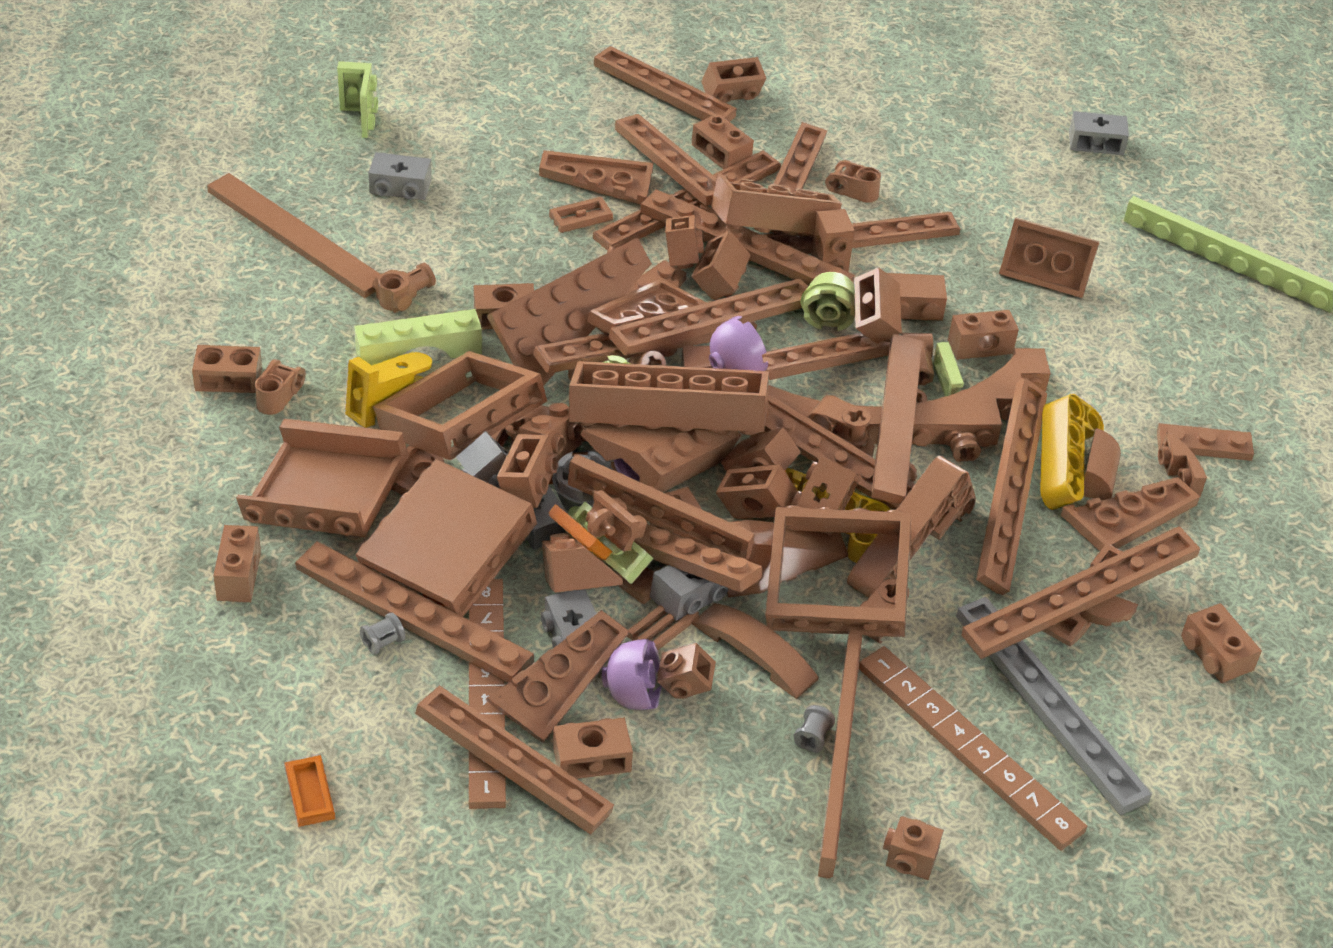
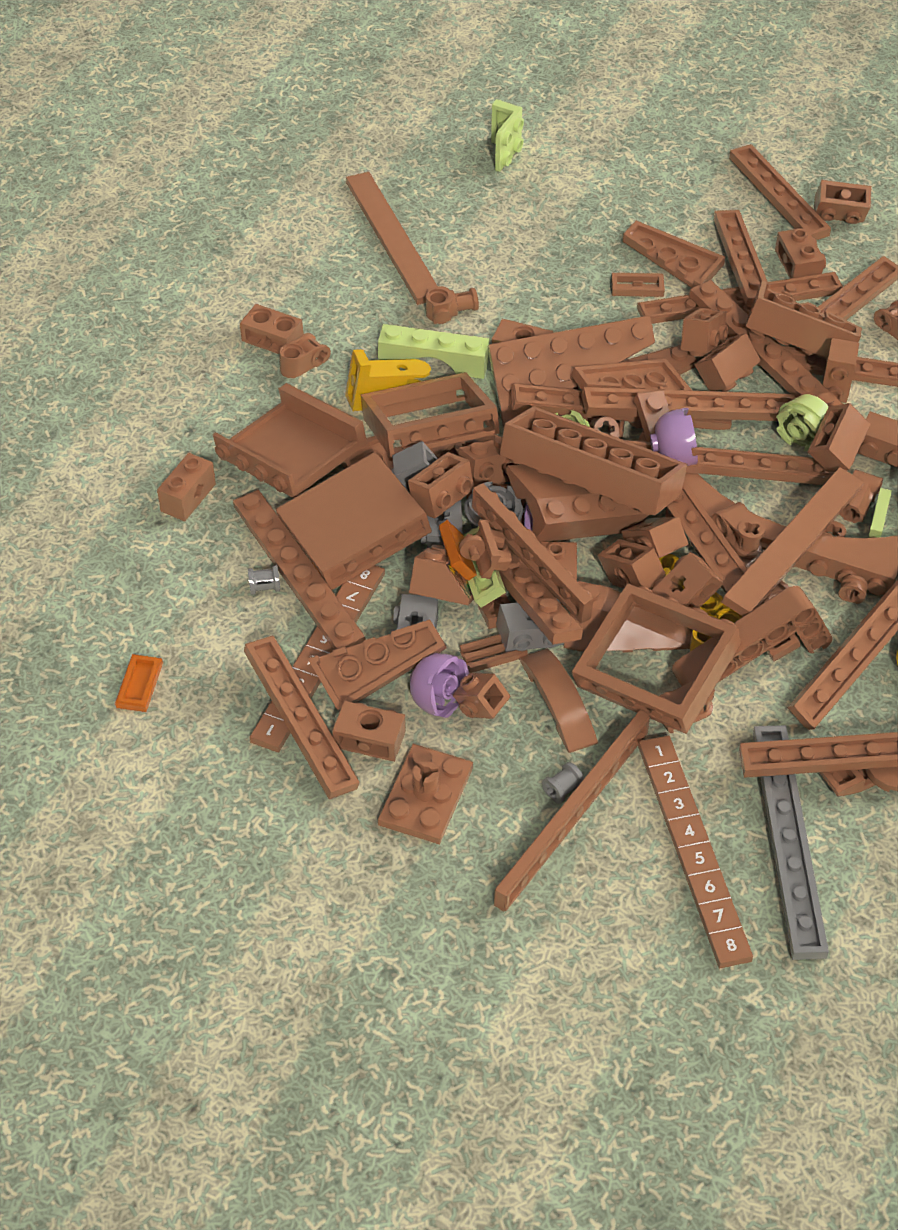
camera: 30 degrees right, 5 degrees up
(400, 176) = (502, 210): light grey brick -> none
(684, 791) = (425, 794): none -> nougat plate
(691, 335) = (650, 408): none -> nougat plate
(913, 847) = (582, 913): nougat brick -> none

